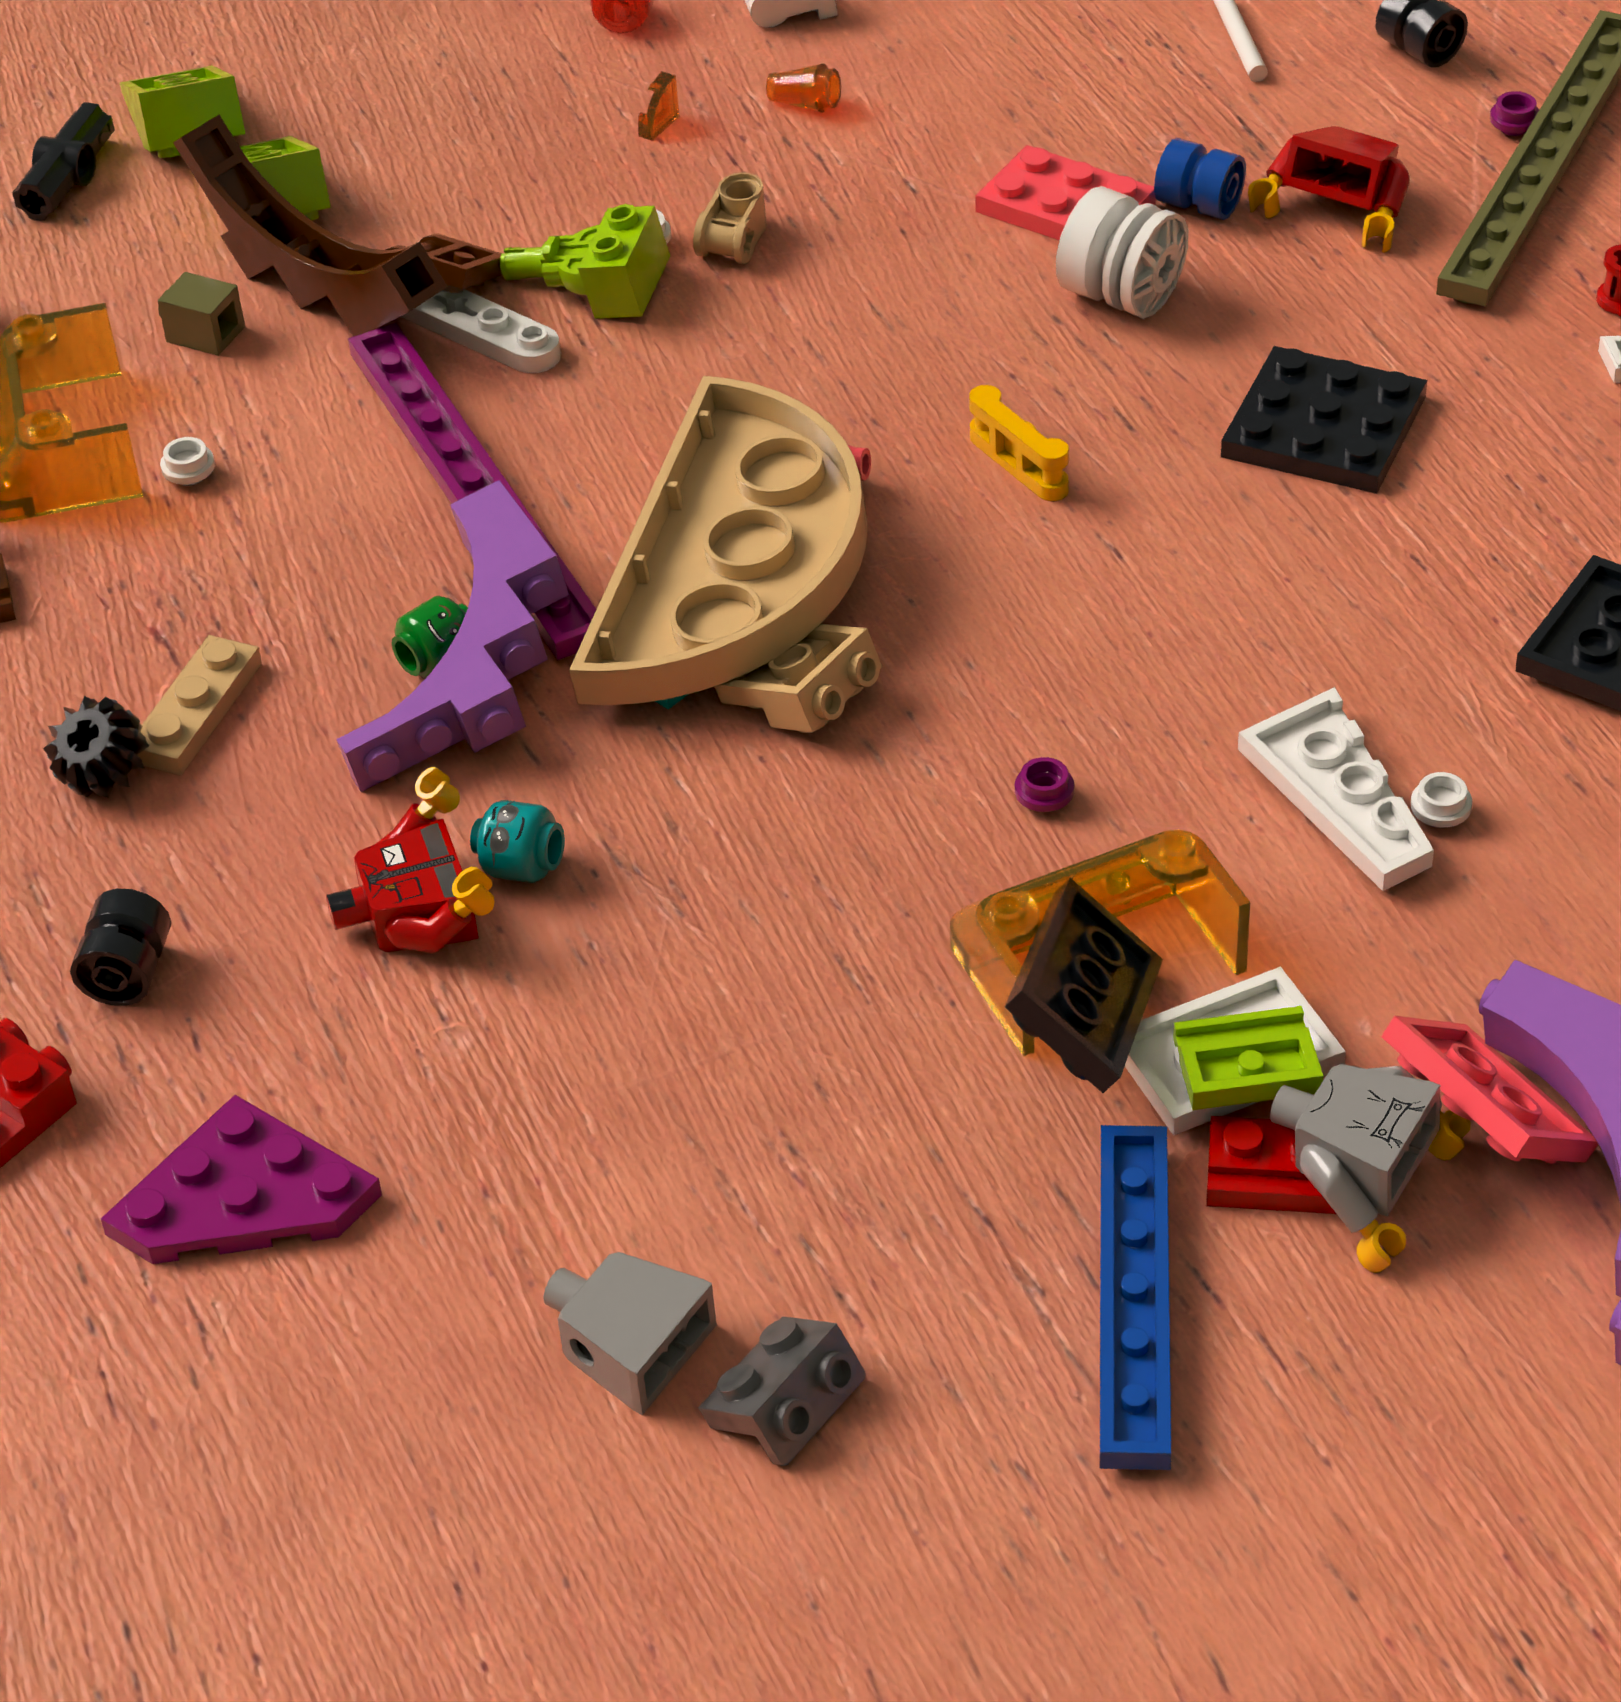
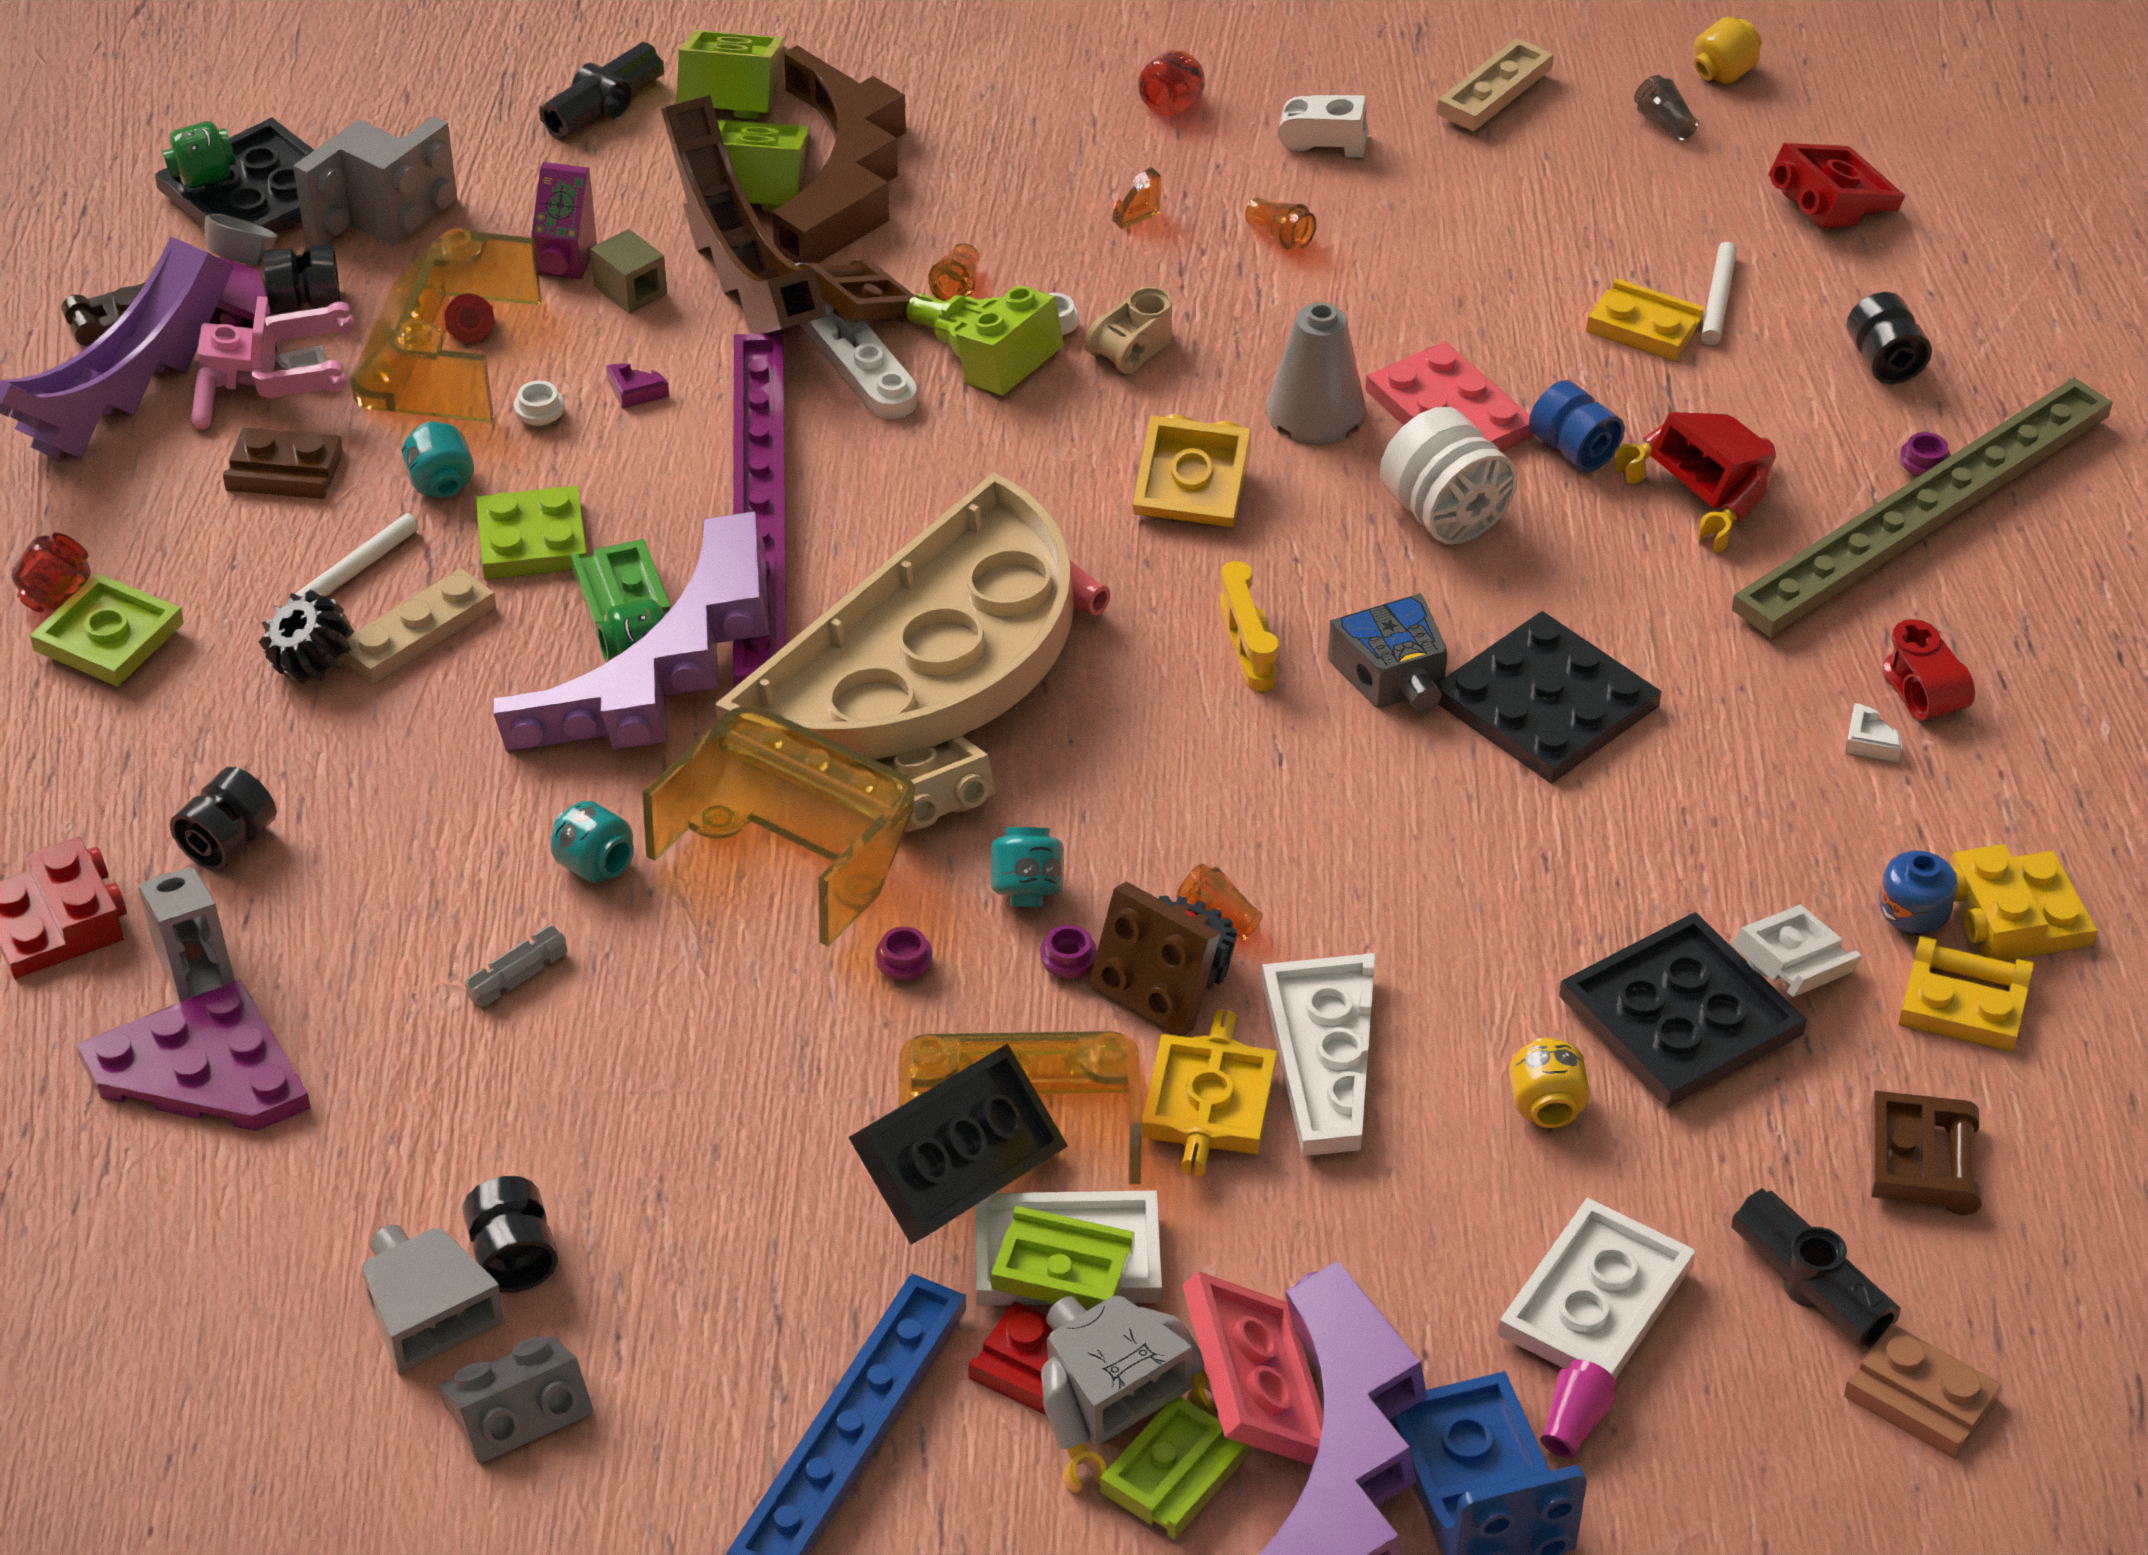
camera: 20 degrees right, 0 degrees up
(68, 398) = (469, 317): none -> red plate
(93, 662) = (363, 556): none -> white bar
(113, 278) = (564, 220): none -> magenta slope
(121, 542) = (436, 457): none -> teal head
(157, 1067) = (180, 914): none -> light grey torso
(255, 581) = (530, 531): none -> lime plate
(271, 419) = (635, 386): none -> magenta tile
(350, 119) = (852, 187): none -> reddish brown arch
(374, 596) = (617, 577): none -> bright green plate
(414, 880) = (487, 846): red torso -> none
(510, 985) = (516, 966): none -> light grey axle
(526, 222) = (955, 273): none -> clear orange cone
(681, 1230) = (510, 1232): none -> black wheel
(704, 723) = (797, 786): none -> clear yellow windscreen
(875, 323) = (1192, 470): none -> yellow plate
(888, 841) = (904, 953): none -> magenta plate
(941, 207) = (1317, 379): none -> light grey cone
(961, 719) = (1027, 865): none -> teal head
(1145, 757) = (1161, 955): none -> reddish brown plate
(1156, 693) = (1218, 892): none -> clear orange cone
(1167, 424) = (1391, 653): none -> torso
(1190, 75) = (1645, 319): none -> yellow plate
(1273, 860) = (1209, 1093): none -> yellow plate
(1441, 800) = (1406, 1092): white plate -> none
(1463, 1209) = (1173, 1467): none -> lime plate
(1569, 744) = (1549, 1082): none -> yellow head

